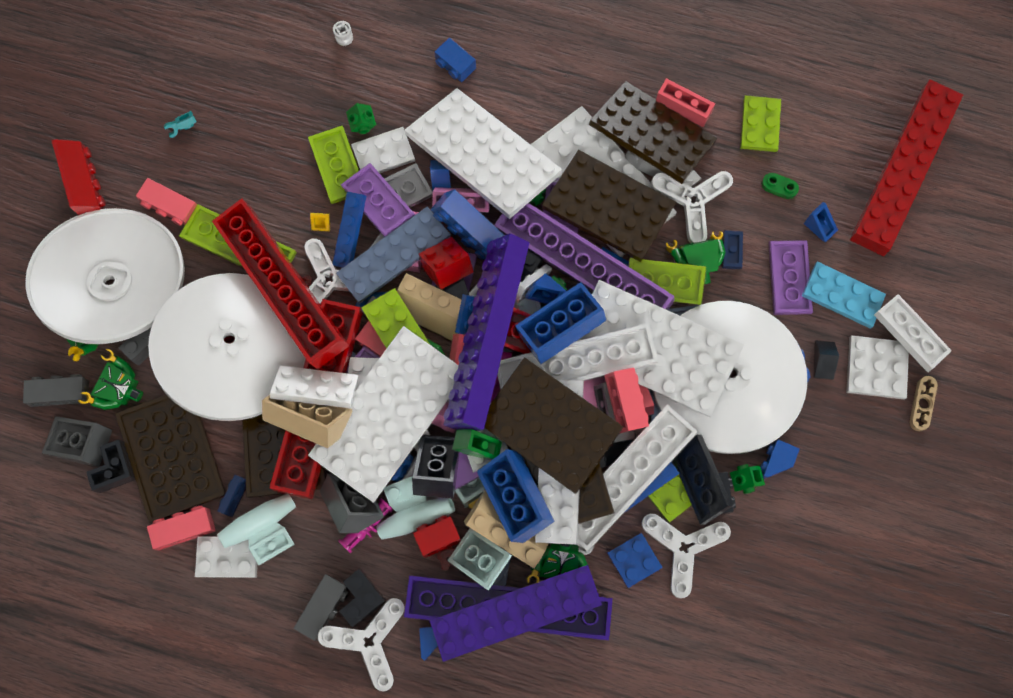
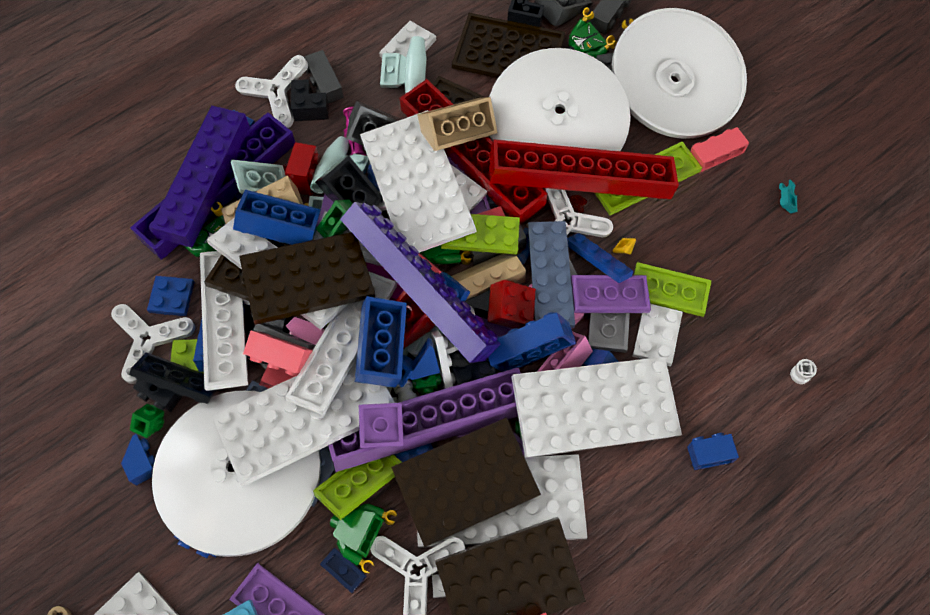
camera: 125 degrees right, 10 degrees down
(78, 176) = (781, 98): red slope -> none
(181, 528) = (449, 29): coral brick -> none
(232, 498) = (445, 67): dark blue plate -> none
(314, 387) = (474, 140): white plate -> none
(361, 118) = (701, 331): green brick -> none
(623, 277) = (380, 425): none -> medium lavender plate
(825, 359) = (182, 576): black slope -> none

